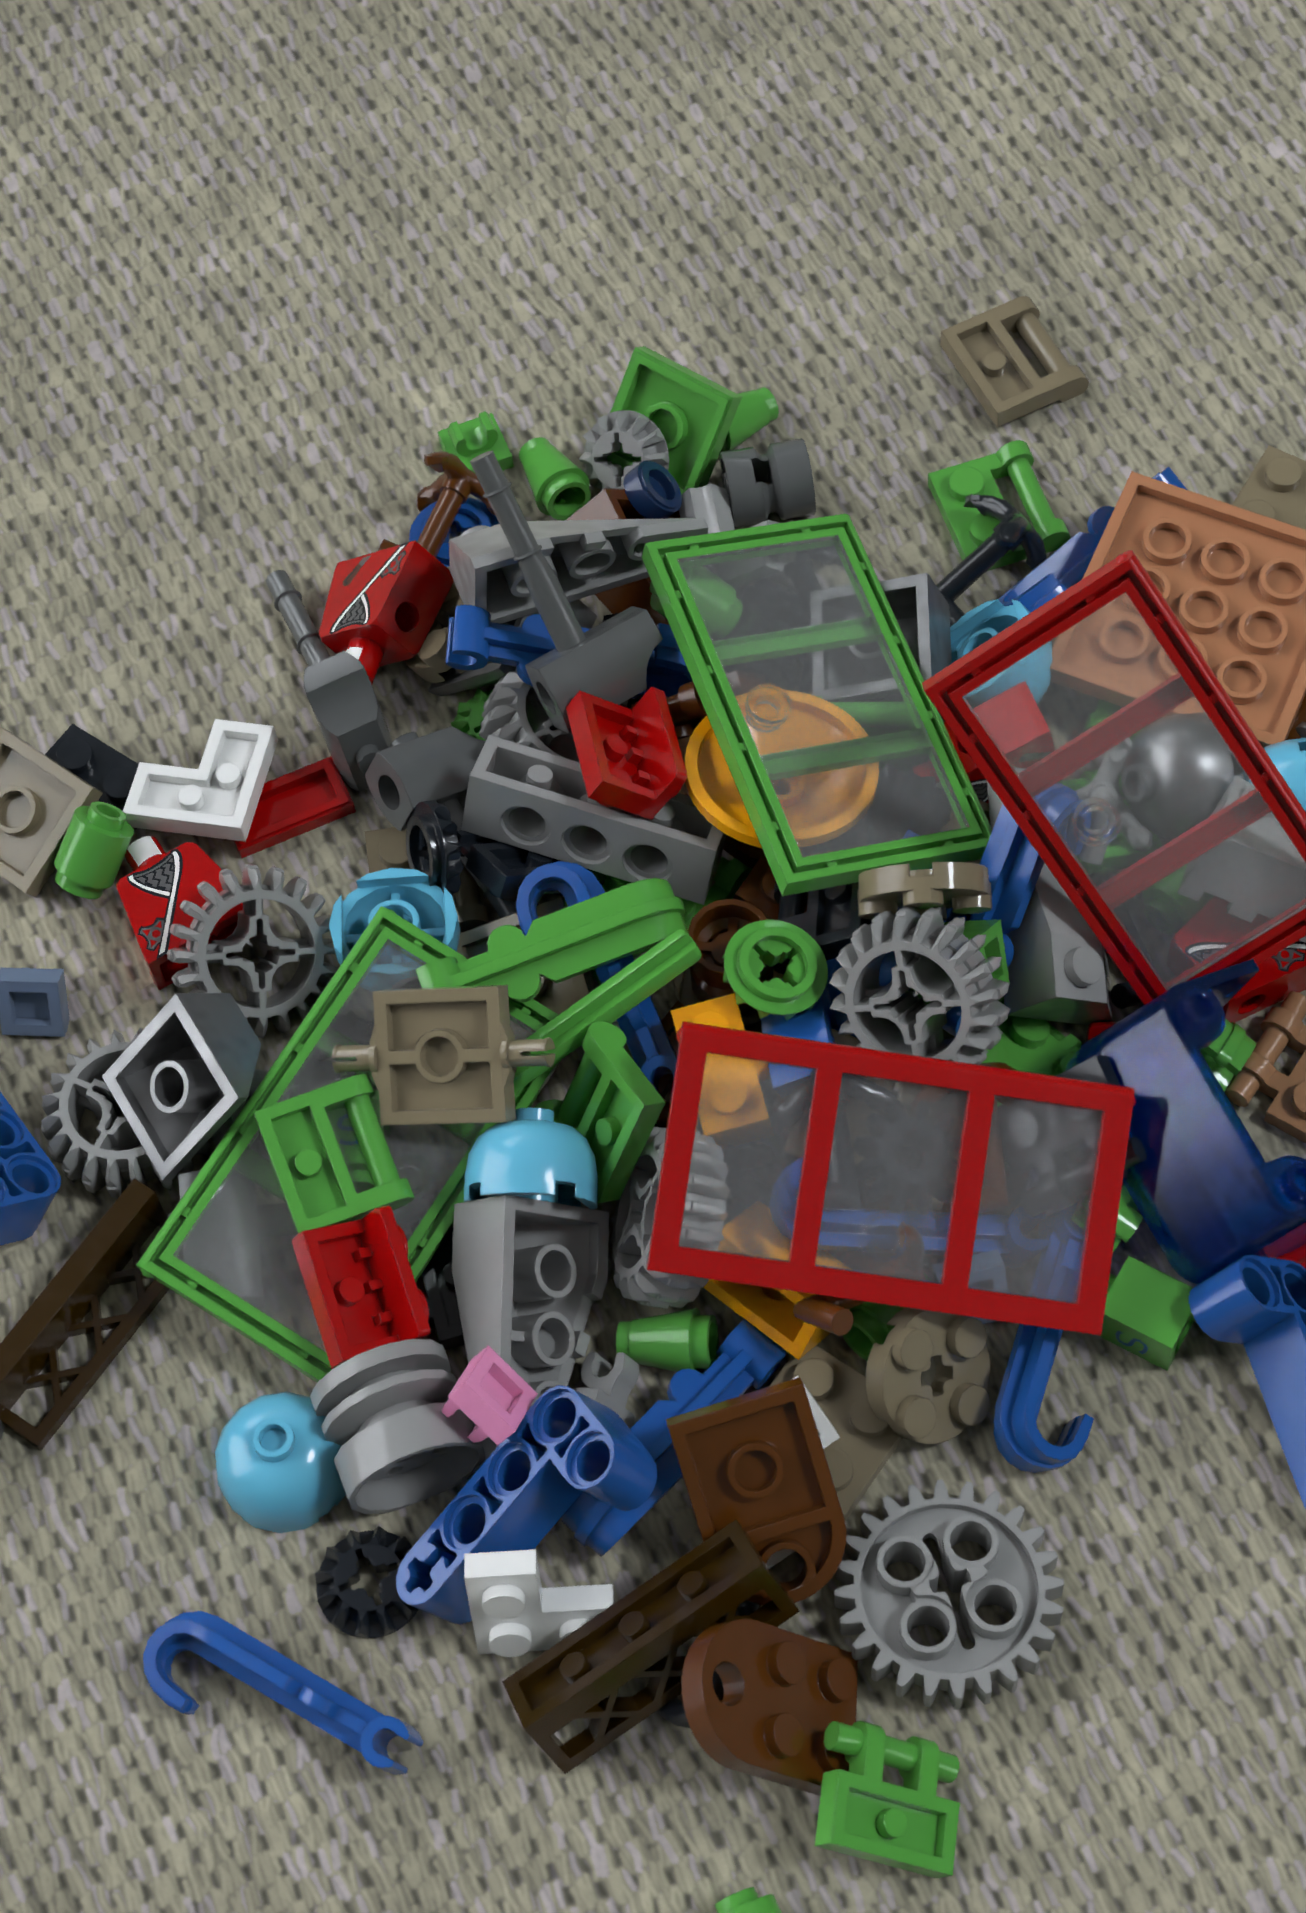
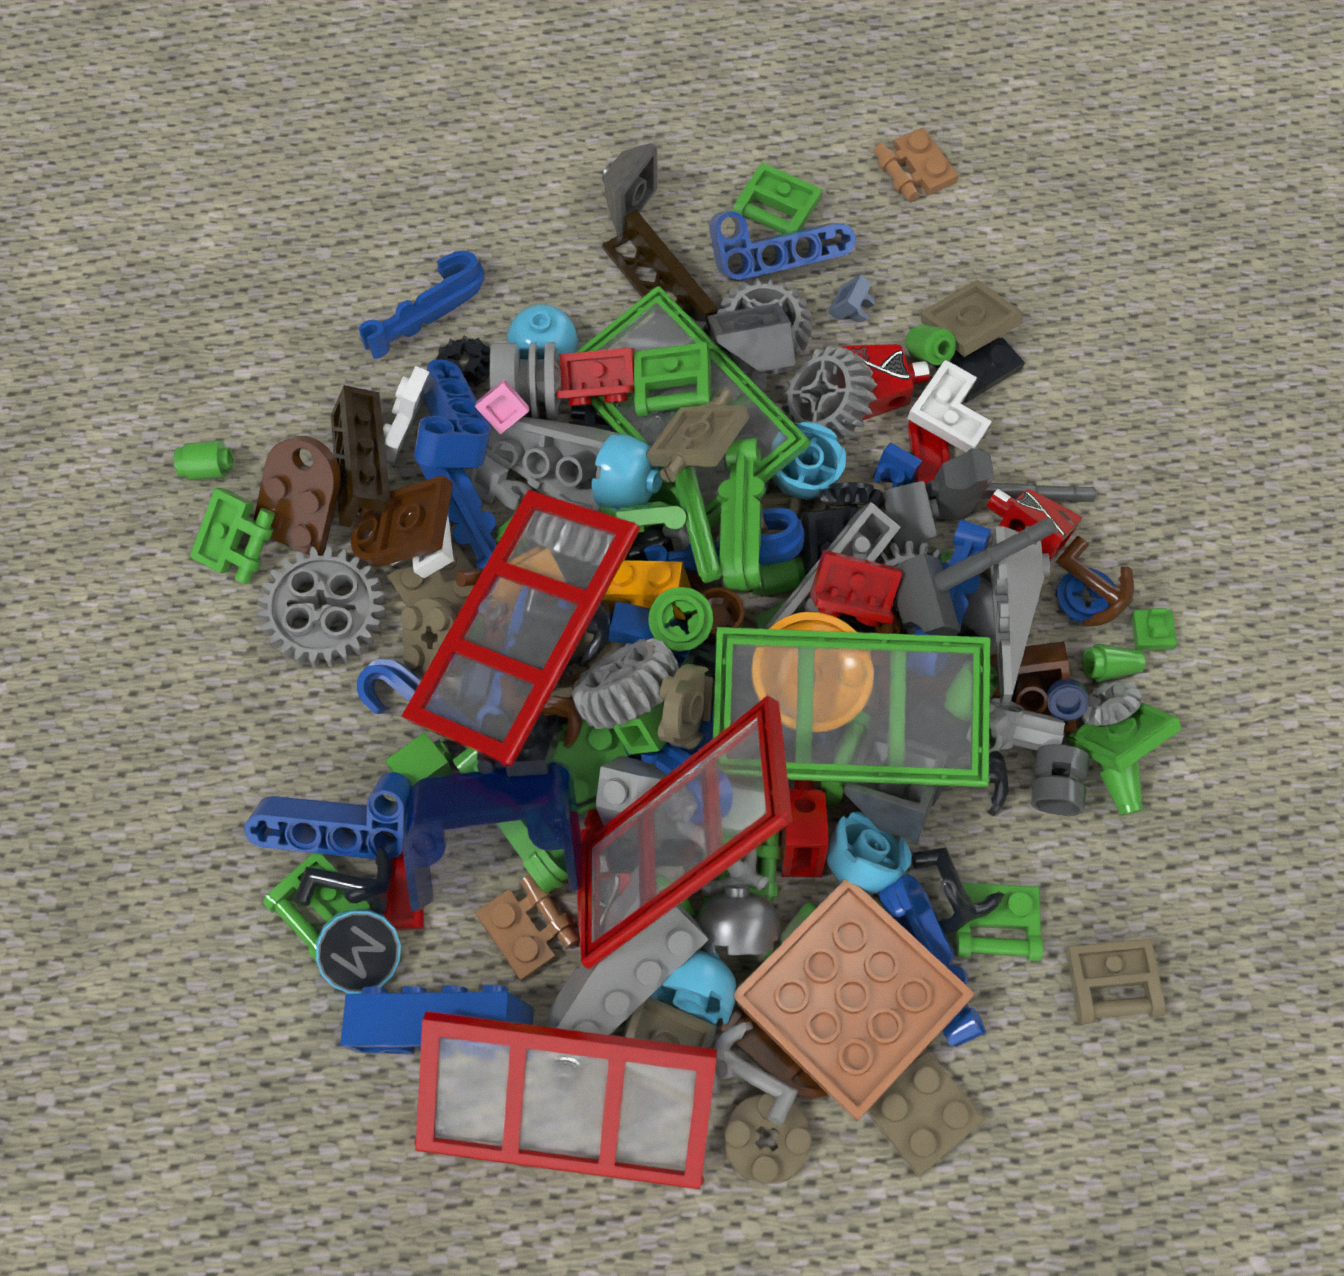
camera: 105 degrees right, 5 degrees up
(340, 829) = (896, 466): none -> blue tile

